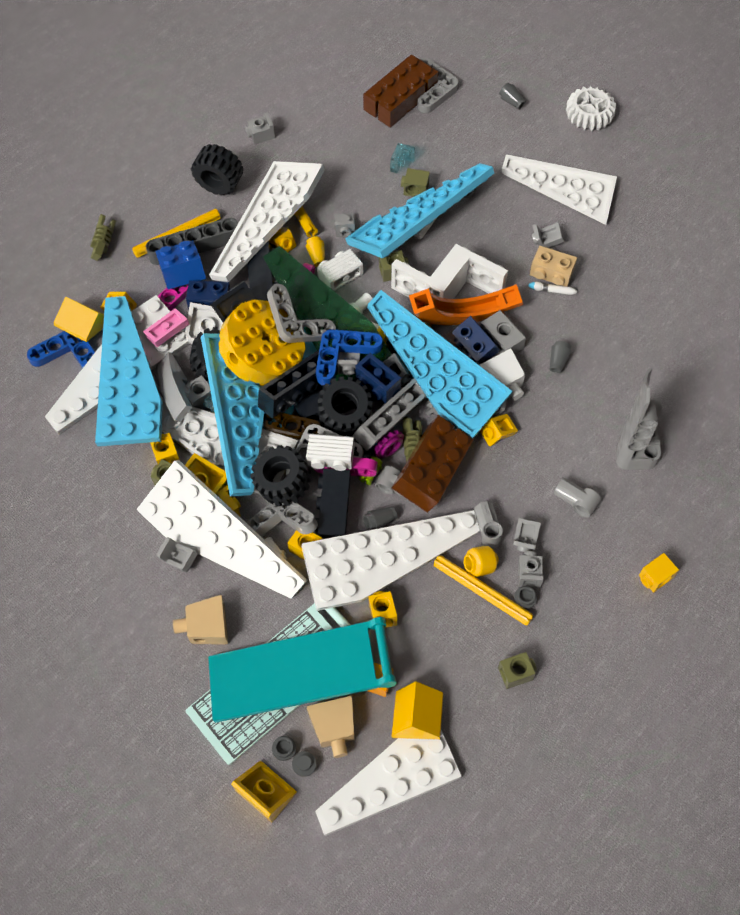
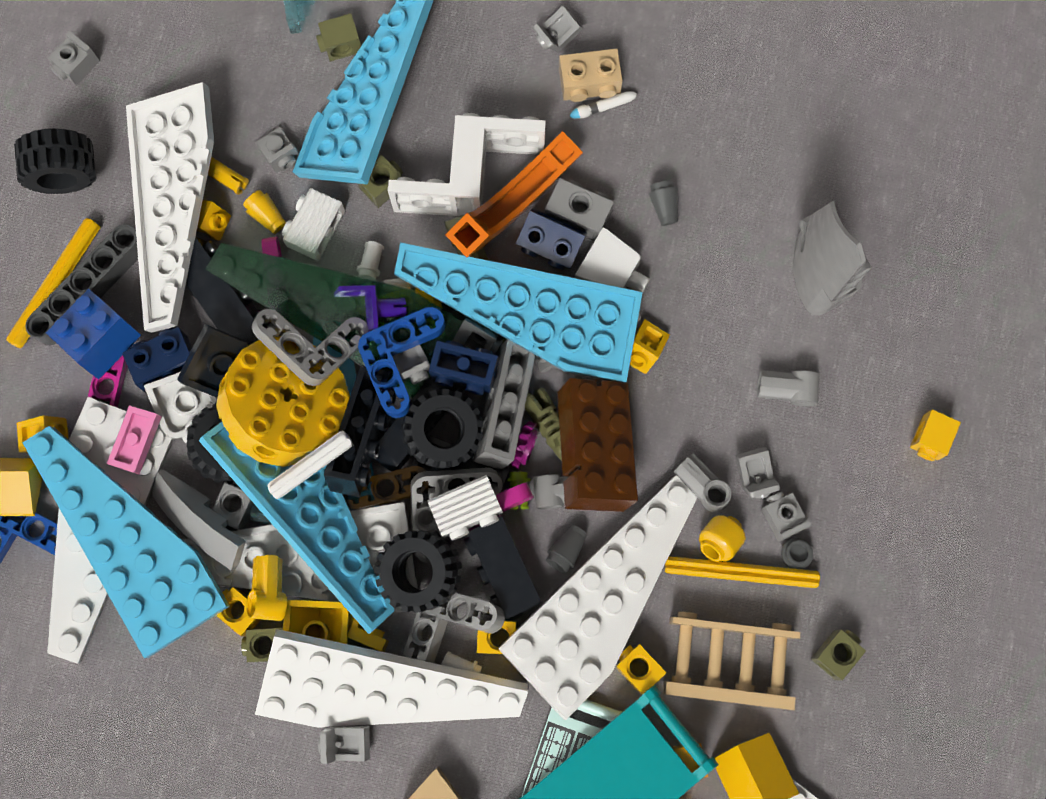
camera: 30 degrees left, 15 degrees up
(185, 444) = (266, 598): none -> yellow piece
(254, 379) = (310, 464): none -> white axle
(346, 320) = (374, 307): none -> dark purple bracket
(440, 660) = (713, 687): none -> tan fence

